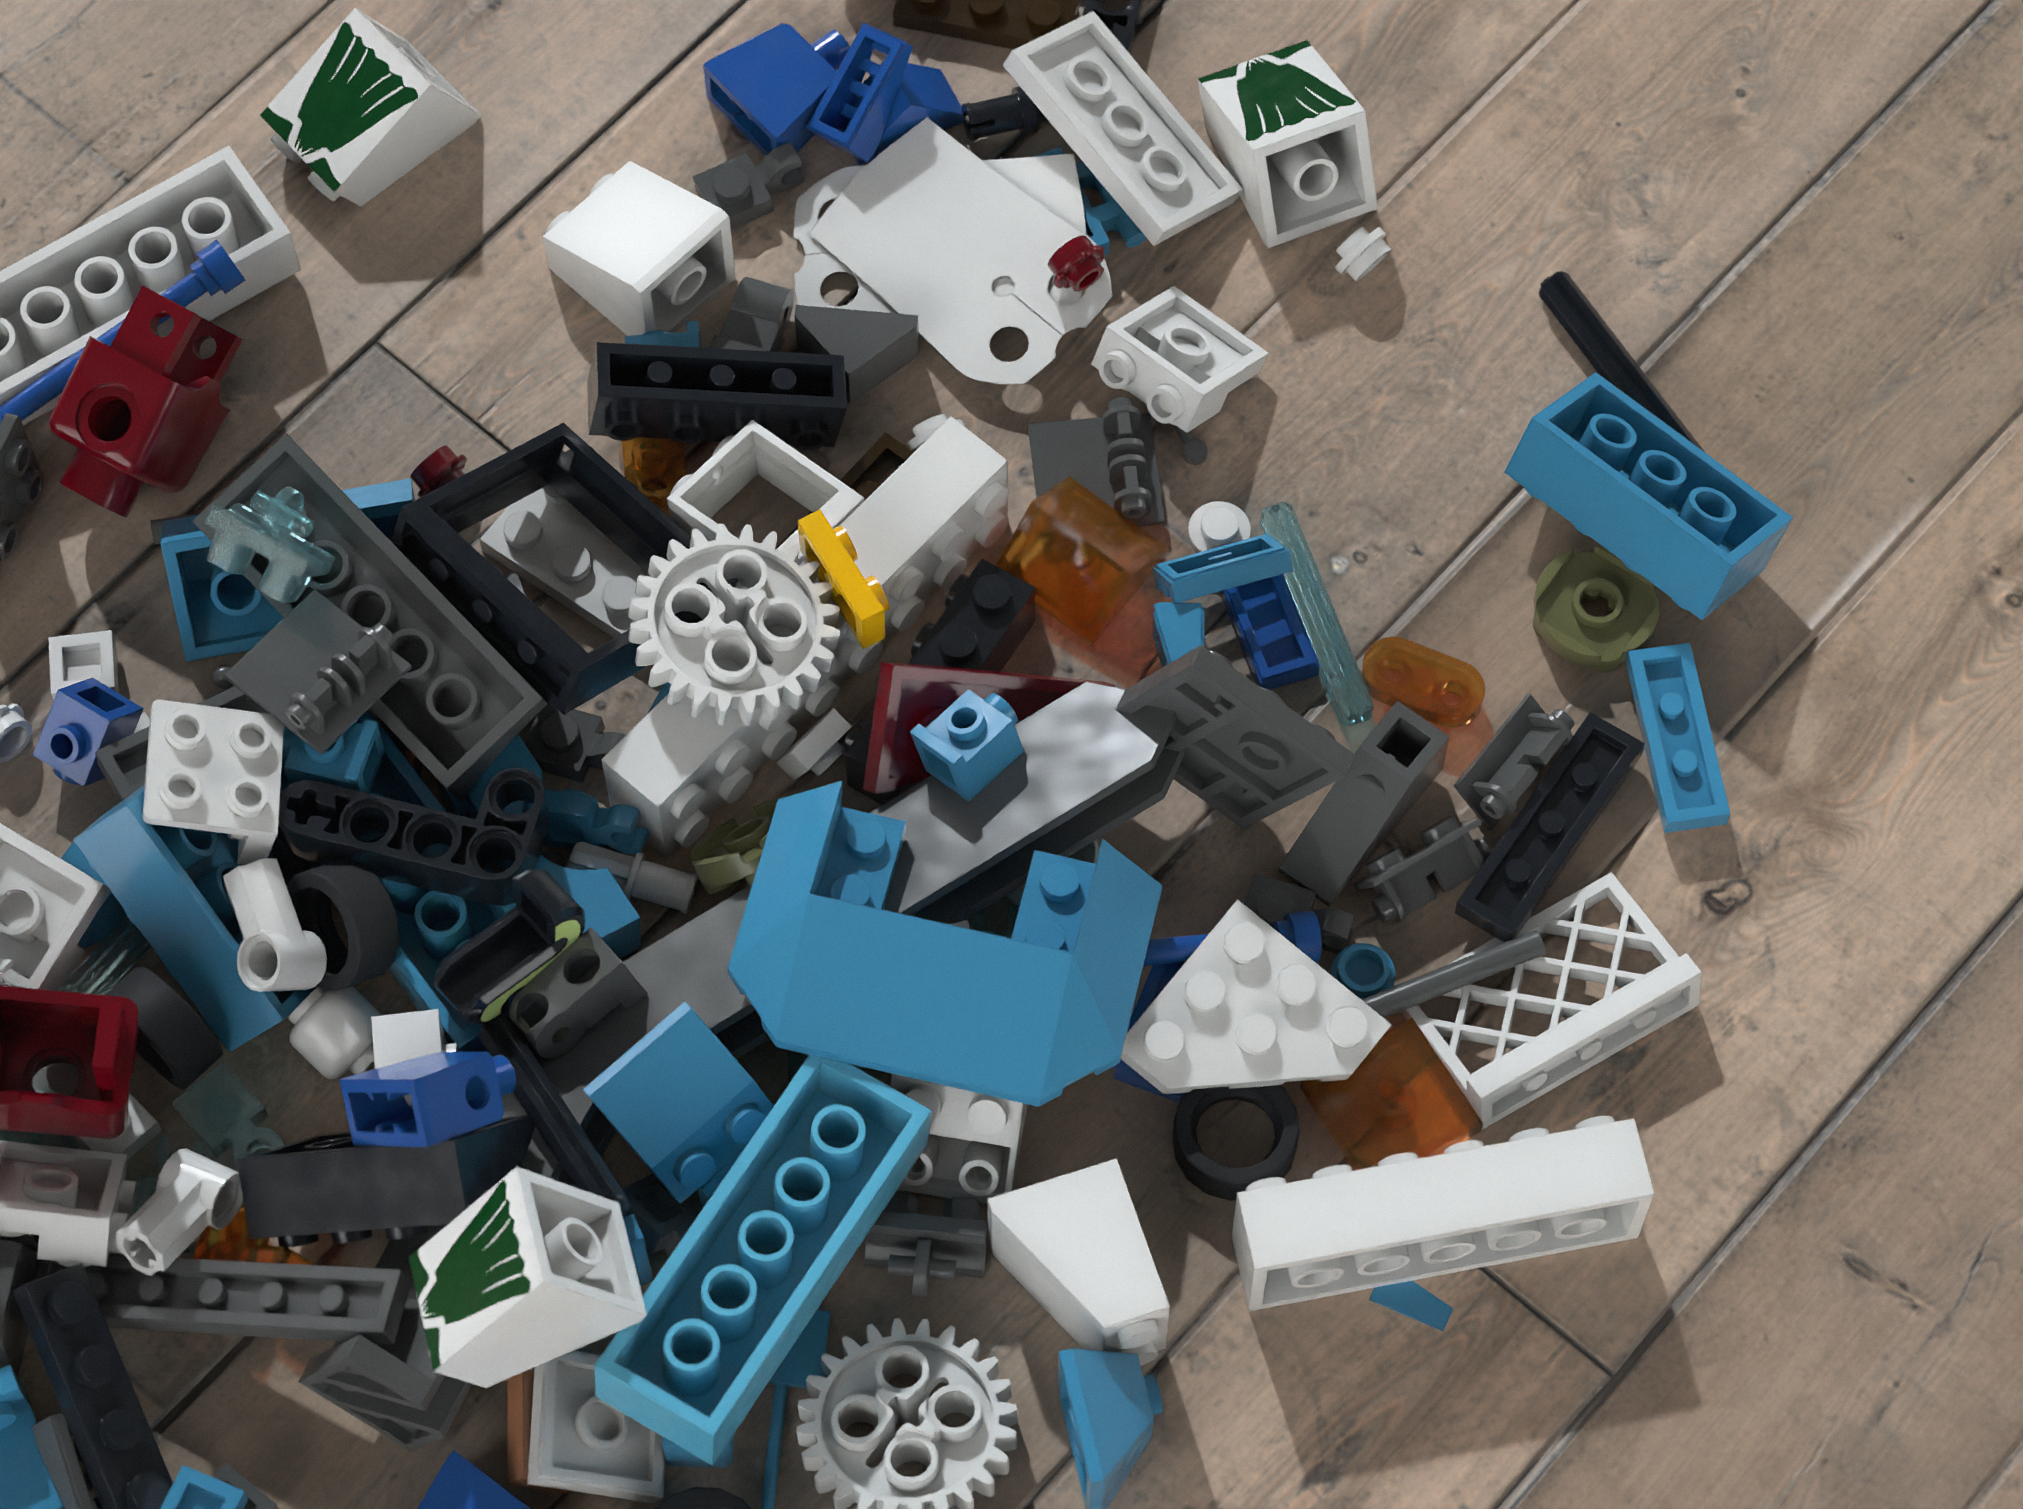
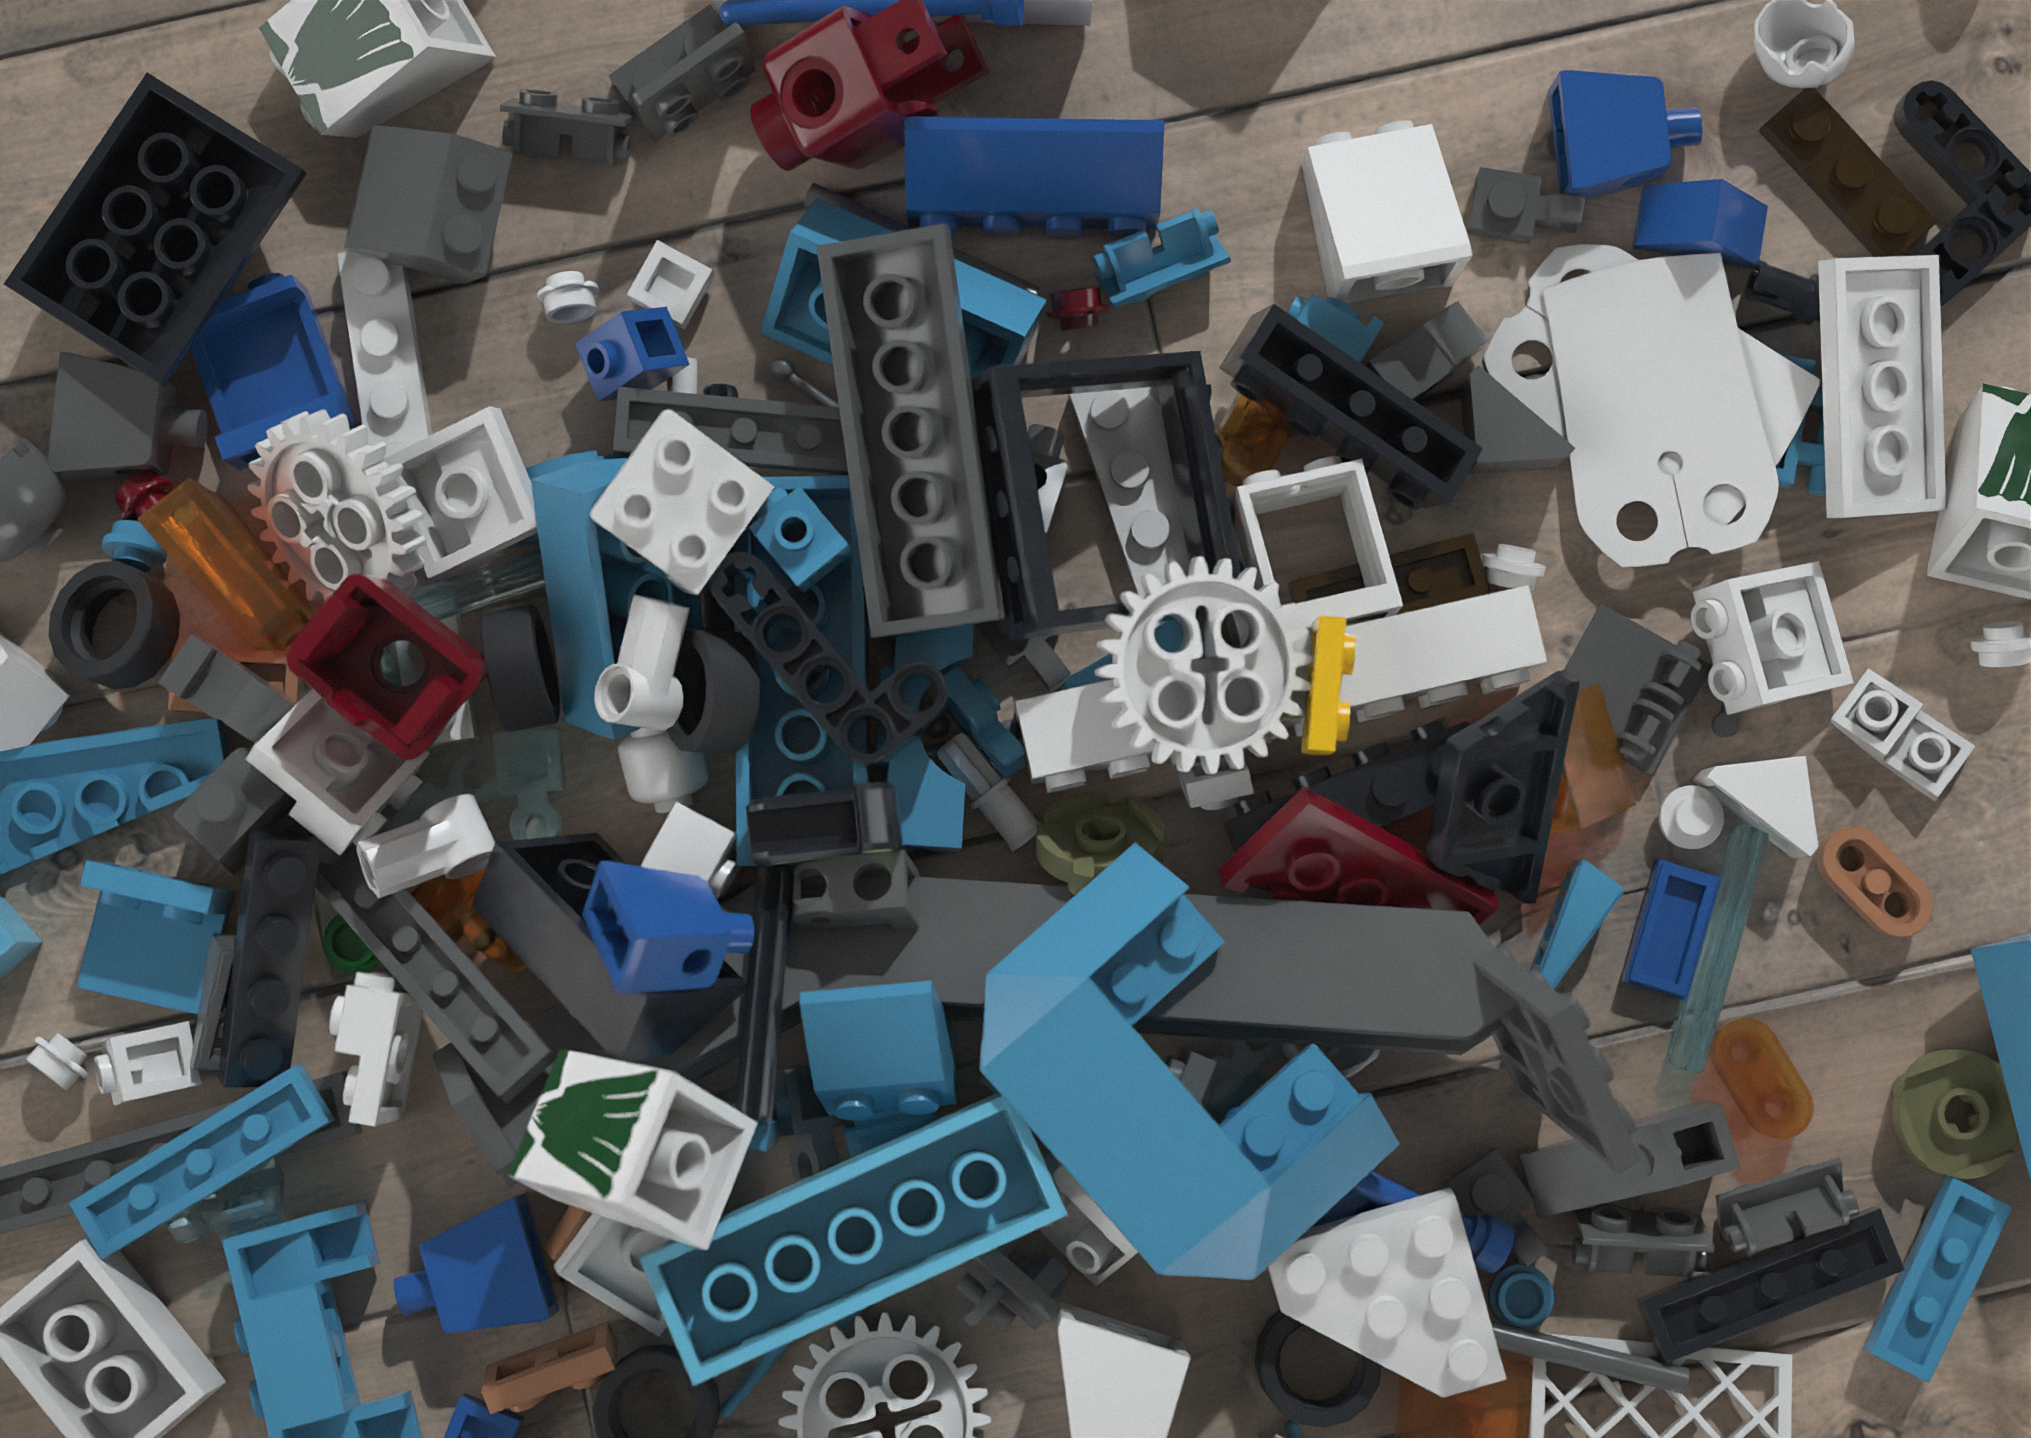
camera: 35 degrees right, 20 degrees up
(164, 1358) = (346, 949): none -> green plate
(234, 1395) = (383, 1028): none -> white plate
(244, 532) = (865, 320): clear light blue hips -> none
(319, 671) = (827, 466): dark grey hinge -> none
(337, 381) = (1034, 174): none -> blue slope
(467, 415) = (1134, 271): none -> dark azure hinge
(871, 116) = (1652, 186): blue slope -> none
(969, 743) = (1320, 925): dark azure brick -> none
(1048, 585) = (1503, 789): none -> black wing
(1077, 264) = (1746, 498): dark red plate -> none
(1222, 568) = (1666, 864): dark azure tile -> none
(1266, 471) = (1769, 797): none -> white slope
(1330, 371) = (1900, 735): none -> white slope
(1397, 481) = (1873, 879): none -> nougat plate

